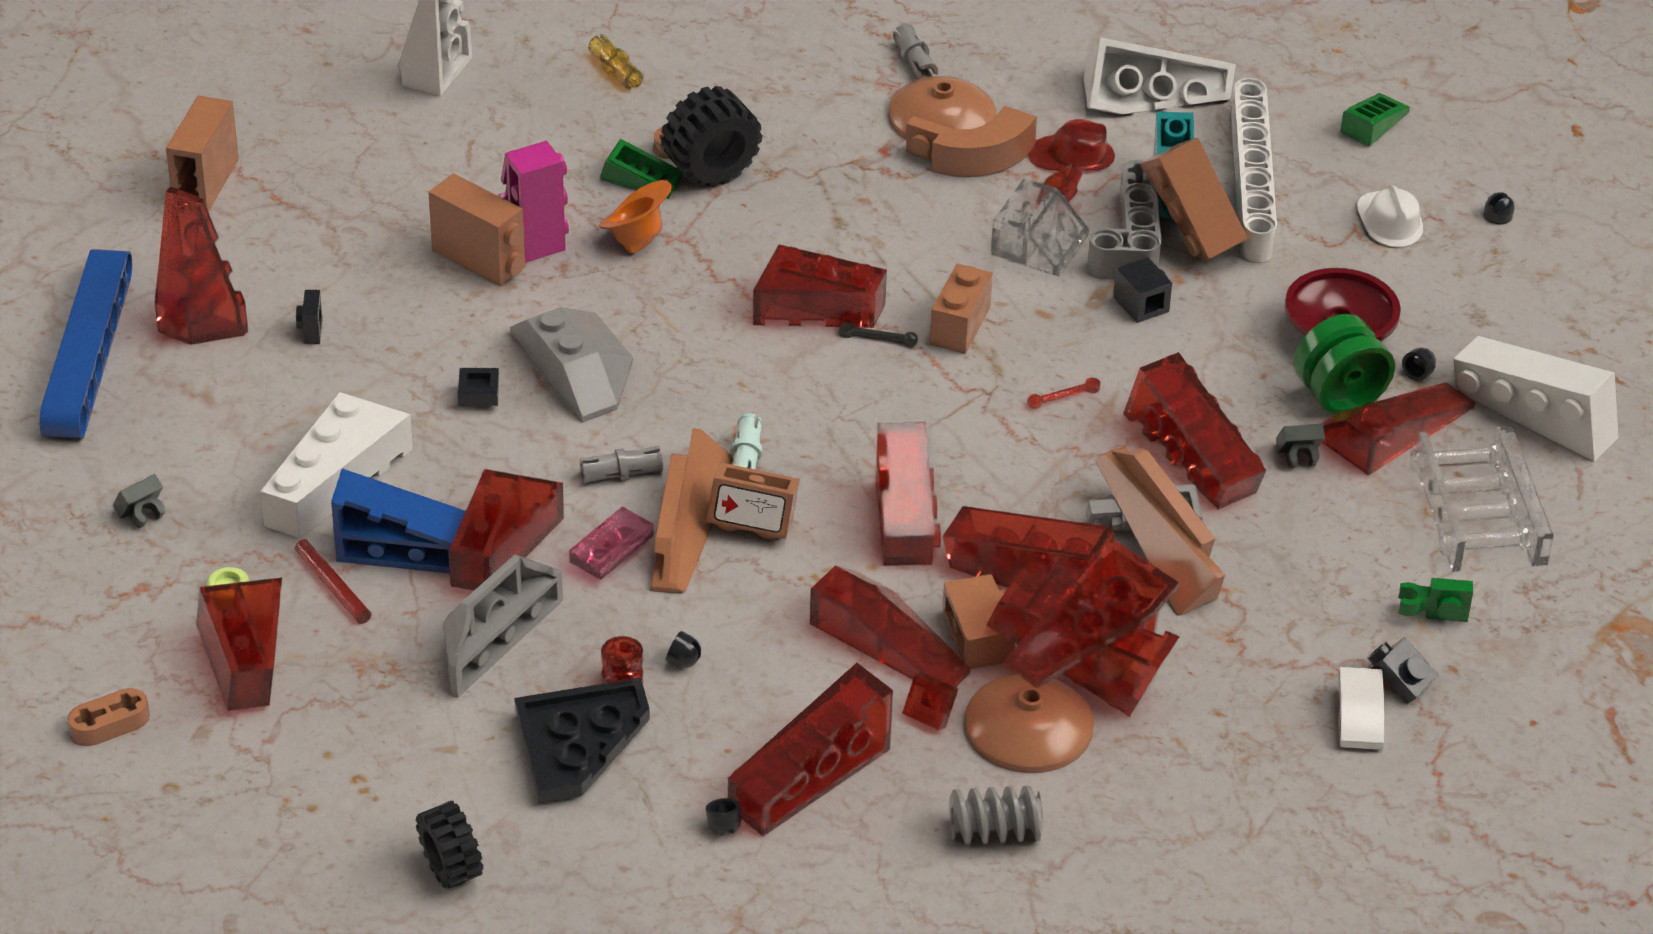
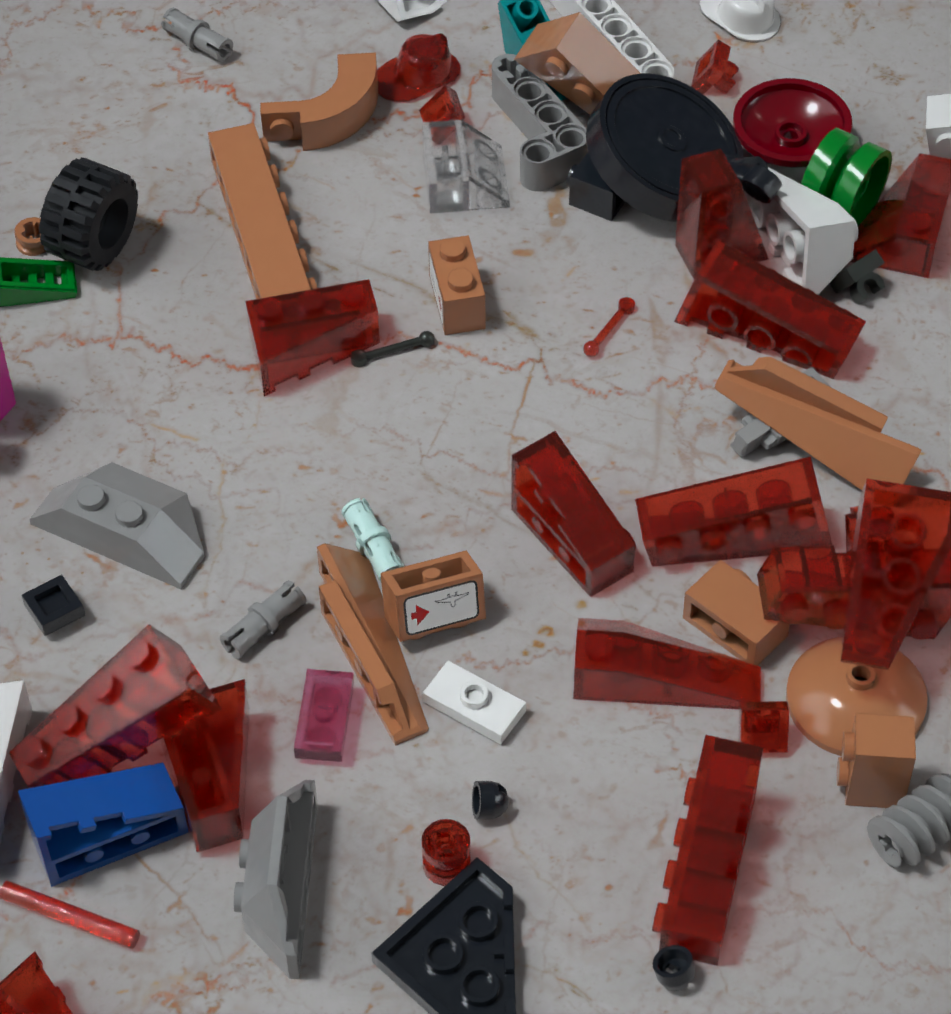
camera: 30 degrees left, 10 degrees up
(455, 455) = (117, 713): none -> clear red wedge
(638, 216) = (71, 330): orange piece -> none
(730, 588) = (474, 702): none -> white plate
(851, 191) = (258, 212): none -> nougat brick
(942, 101) = (263, 75): nougat dish -> none
(990, 751) = (877, 760): none -> nougat brick
(1208, 338) = (713, 209): none -> clear red wedge
(1211, 278) = (646, 131): none -> black brick
(1254, 322) = (755, 177): none -> black connector
(1277, 387) = (807, 232): none -> white wedge
(1319, 246) = (715, 69): none -> clear red tile
(1421, 367) = (890, 140): black hinge -> none

